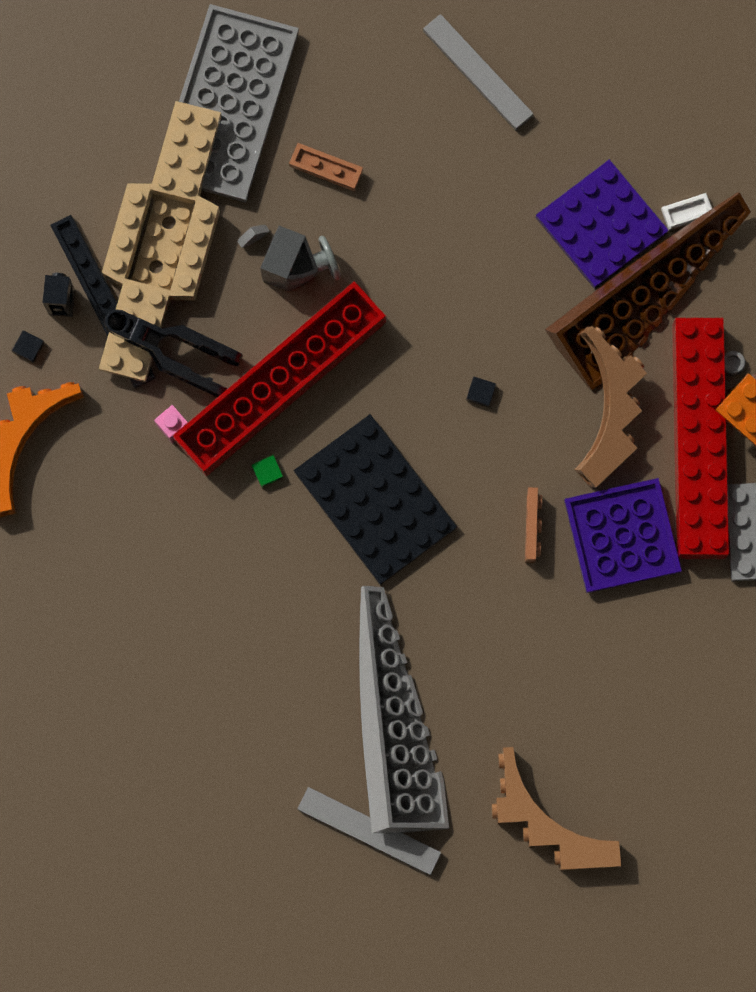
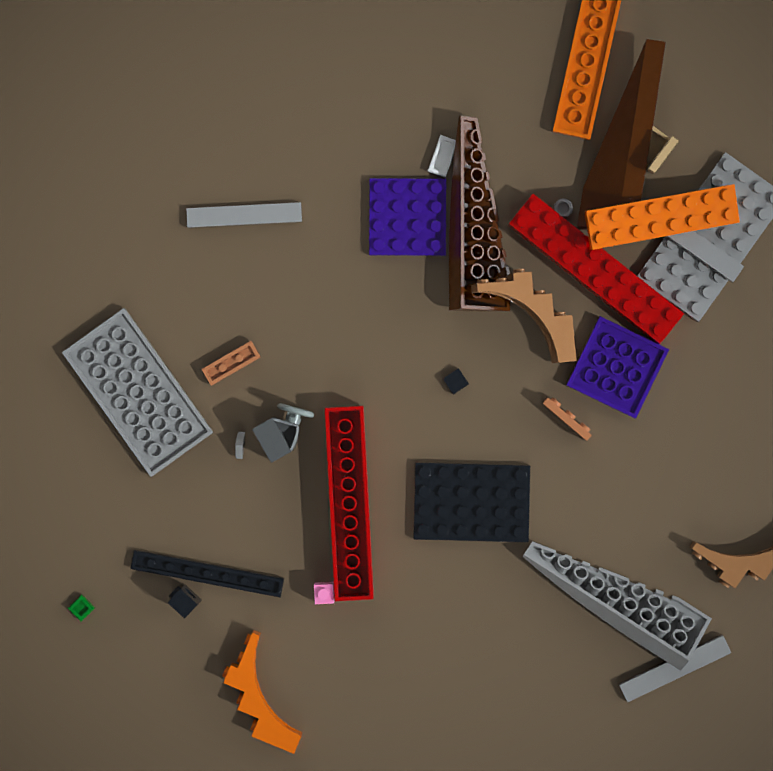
camera: 55 degrees left, 10 degrees up
(28, 346) = (200, 643): black tile -> none
(147, 337) = (259, 568): black piece -> none
(180, 249) = (225, 541): tan piece -> none
(267, 471) = (400, 555): green tile -> none

